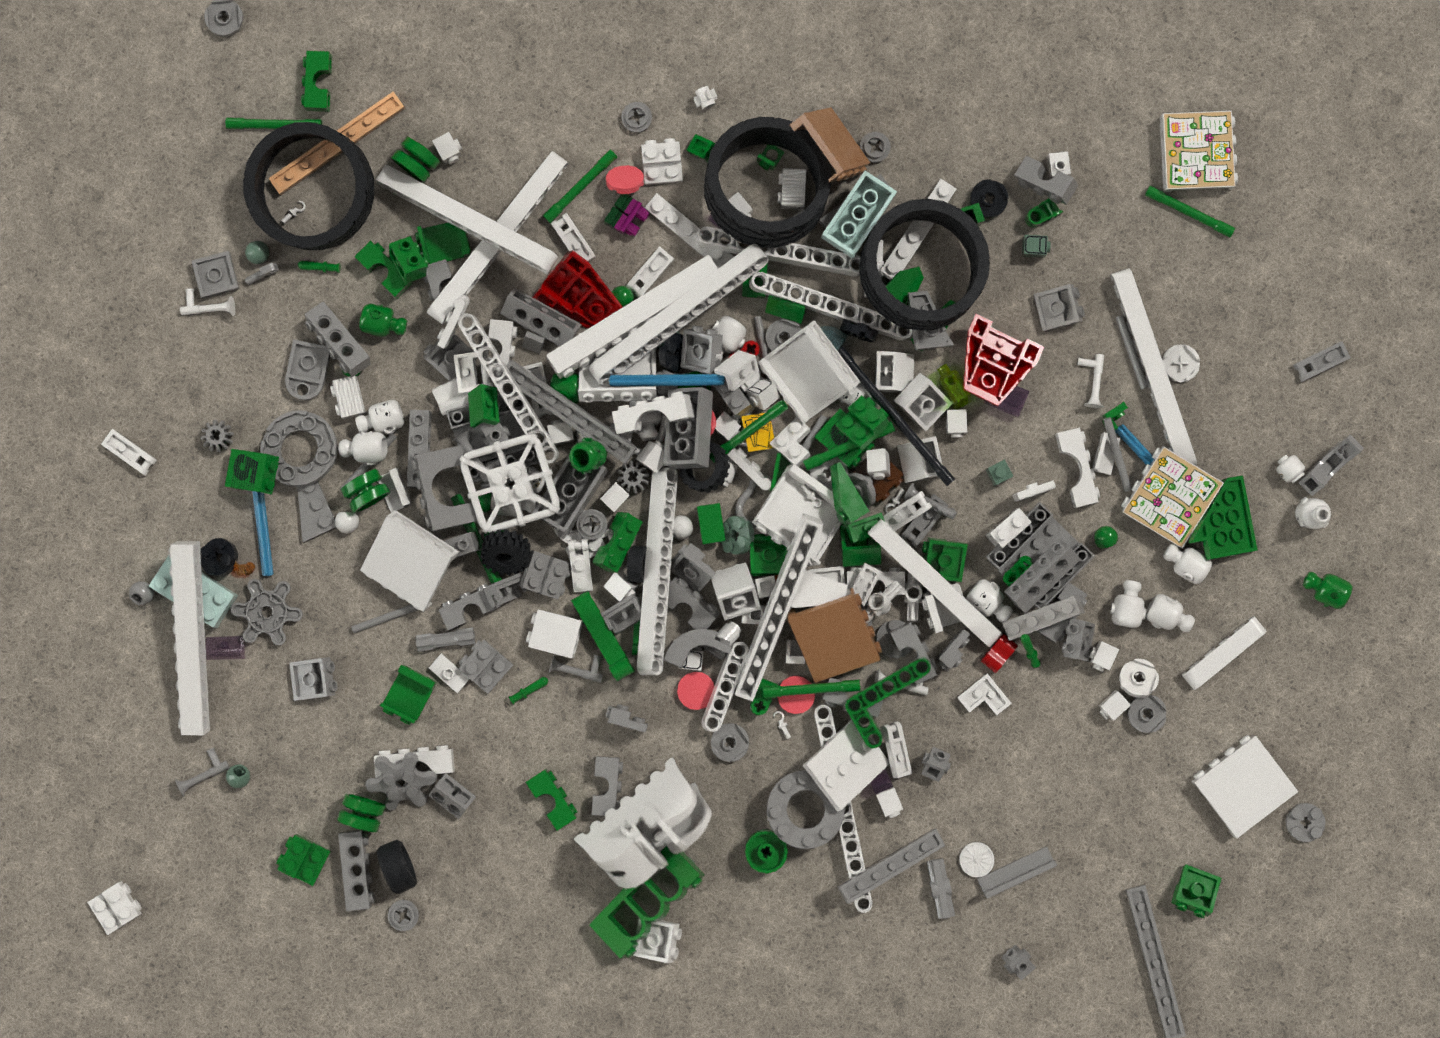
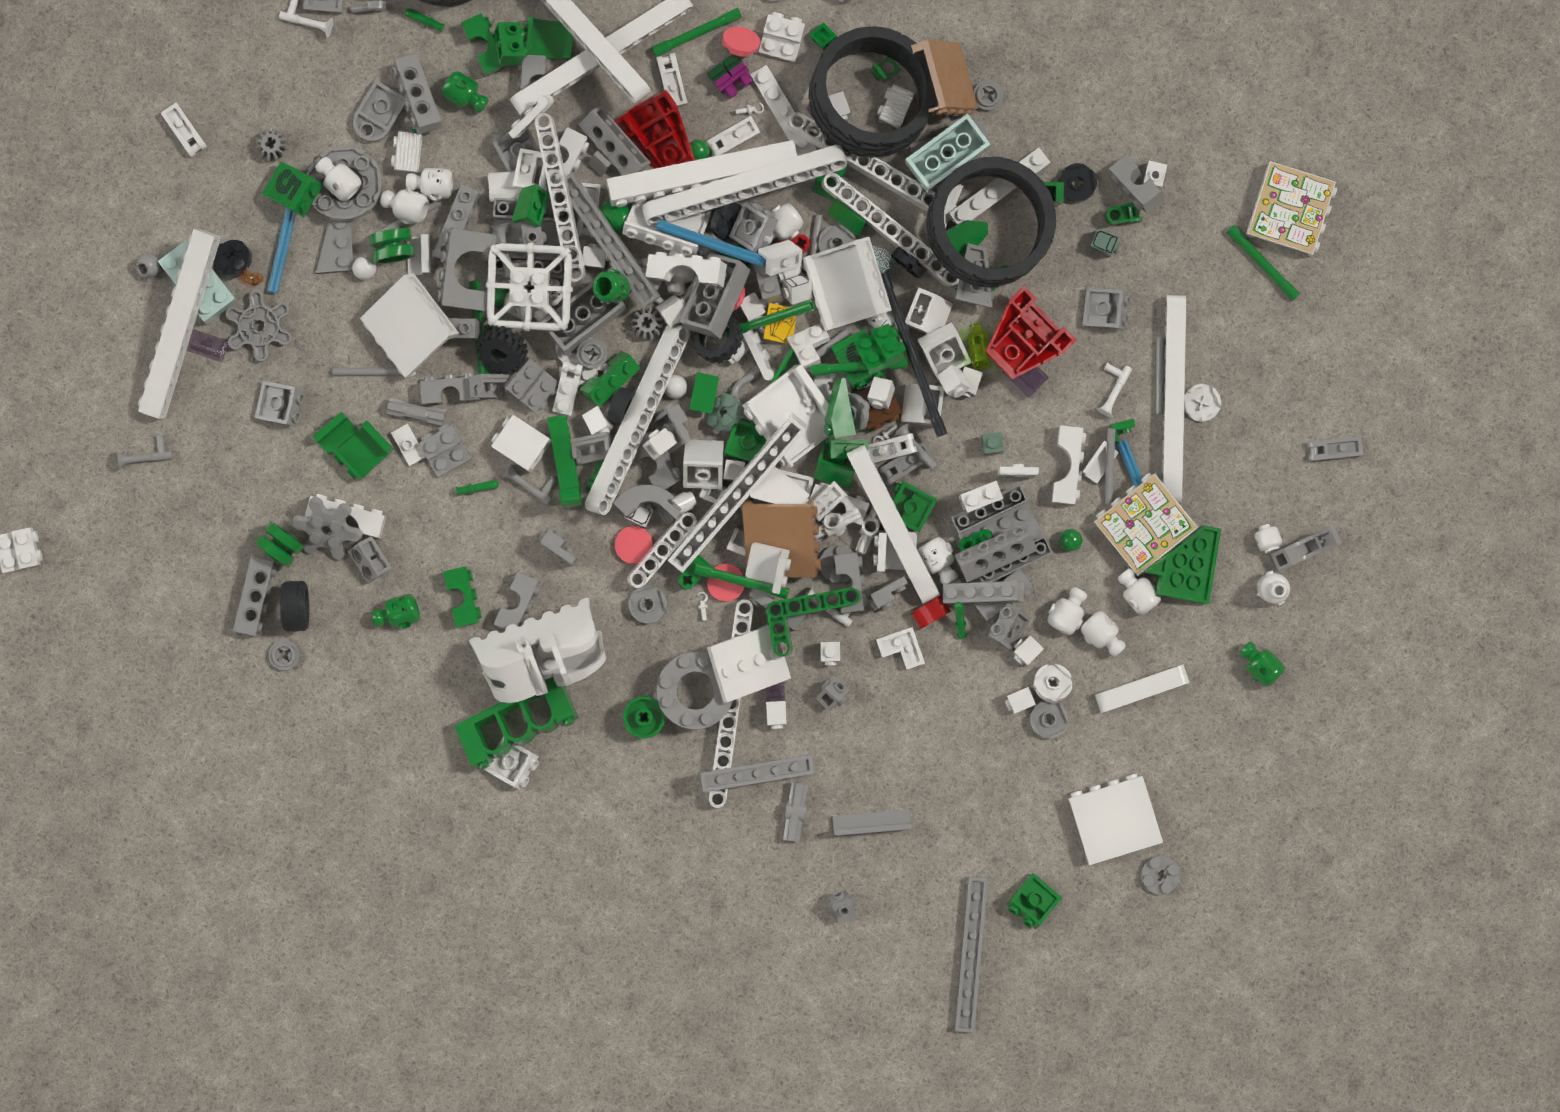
camera: 20 degrees right, 0 degrees up
(238, 776) = (176, 469): sand green piece -> none
(292, 446) = (339, 179): none -> white piece
(302, 859) = (209, 569): green plate -> none
(376, 687) = (335, 433): none -> green panel
(497, 835) = (398, 611): none -> green piece
(615, 497) = (623, 336): white panel -> none
(655, 241) = (749, 110): none -> white hand
(686, 587) = (659, 443): none -> white brick
(832, 665) = (768, 565): none -> white bracket
(896, 749) = (801, 667): white plate -> none
(919, 726) = (830, 652): none -> white brick
(942, 428) = (953, 381): none -> white brick
(976, 859) = (839, 798): white wheel -> none

